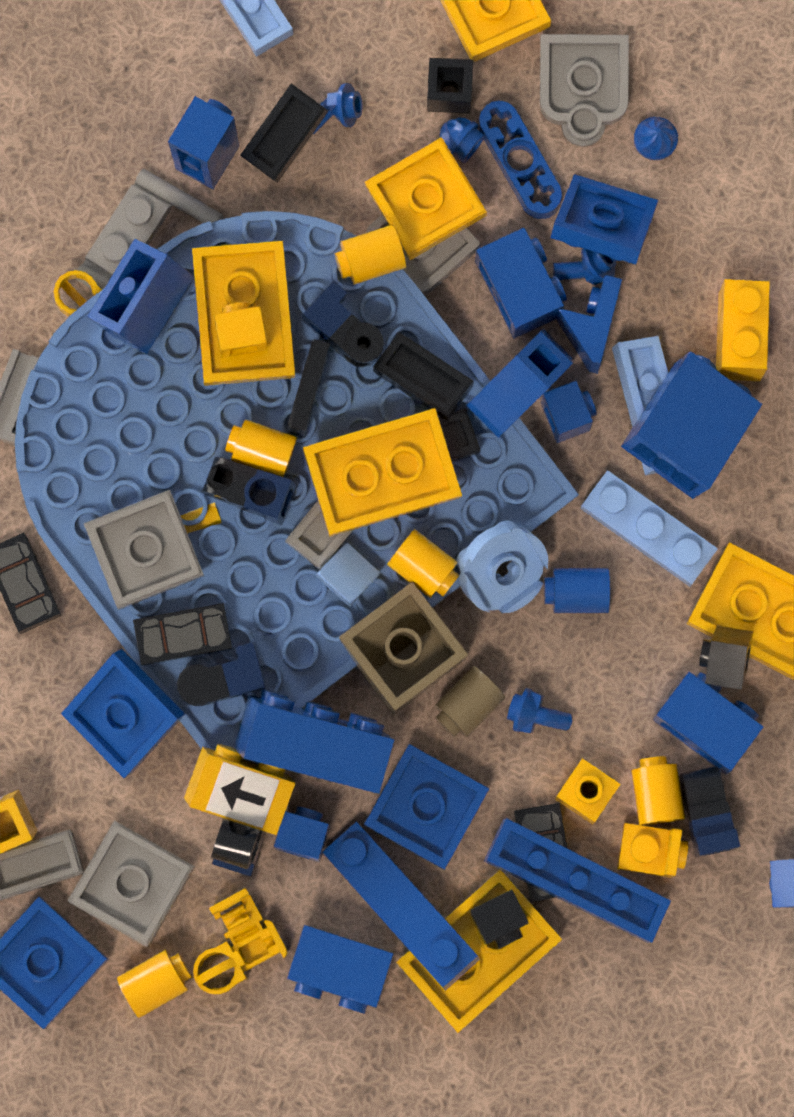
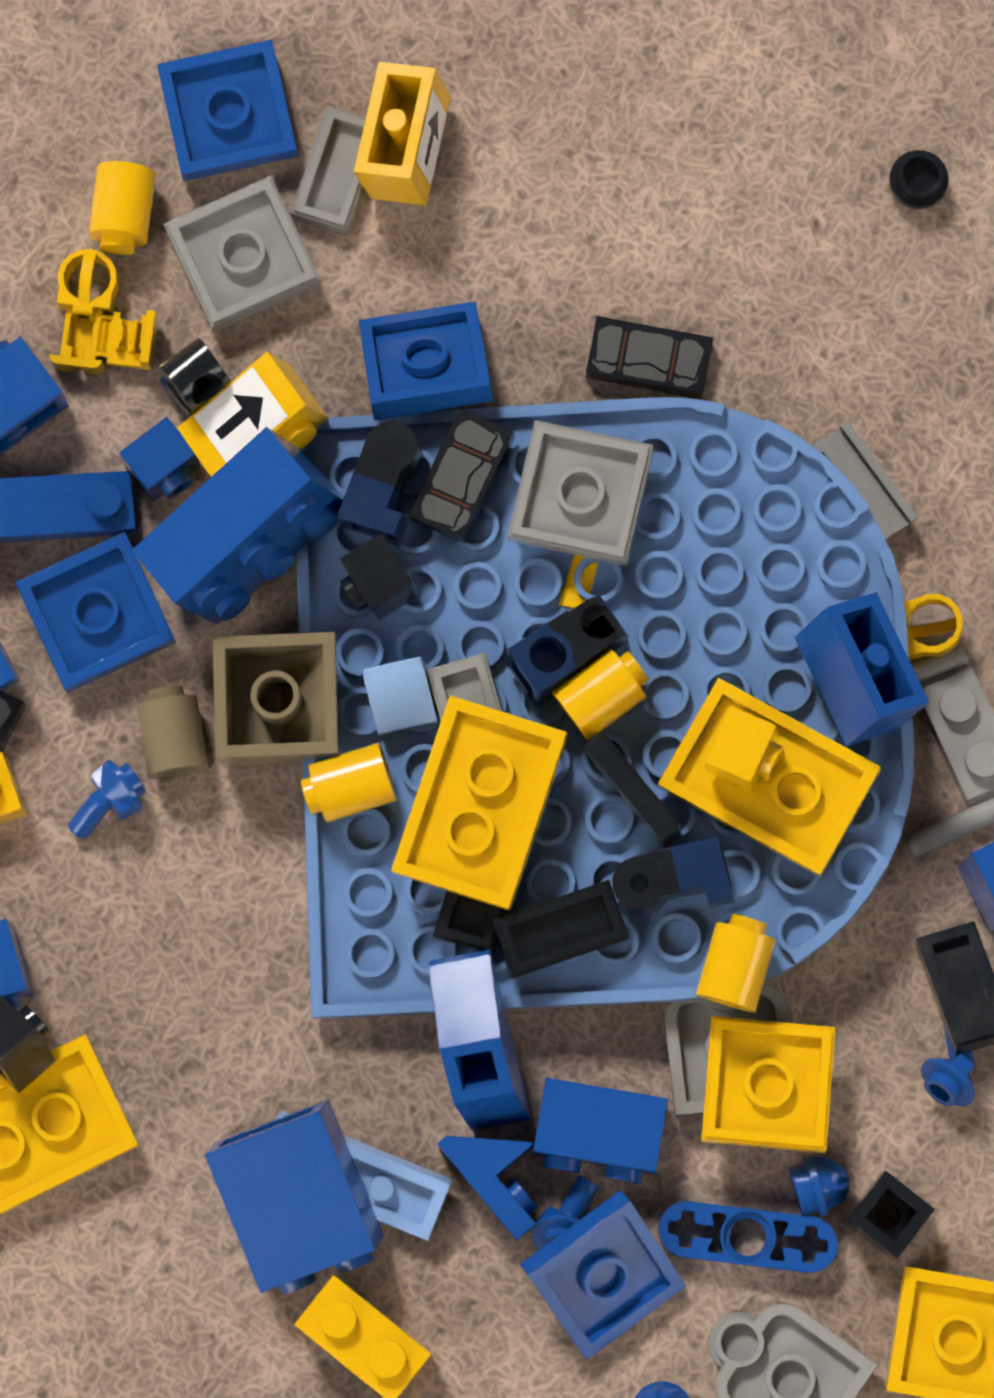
camera: 125 degrees right, 0 degrees up
(285, 638) = (377, 578): none -> black plate
(484, 556) = (309, 892): light blue plate -> none
(568, 411) = (412, 1076): blue plate -> none
(578, 590) = (207, 940): blue brick -> none
(648, 528) = (221, 1072): light blue plate -> none

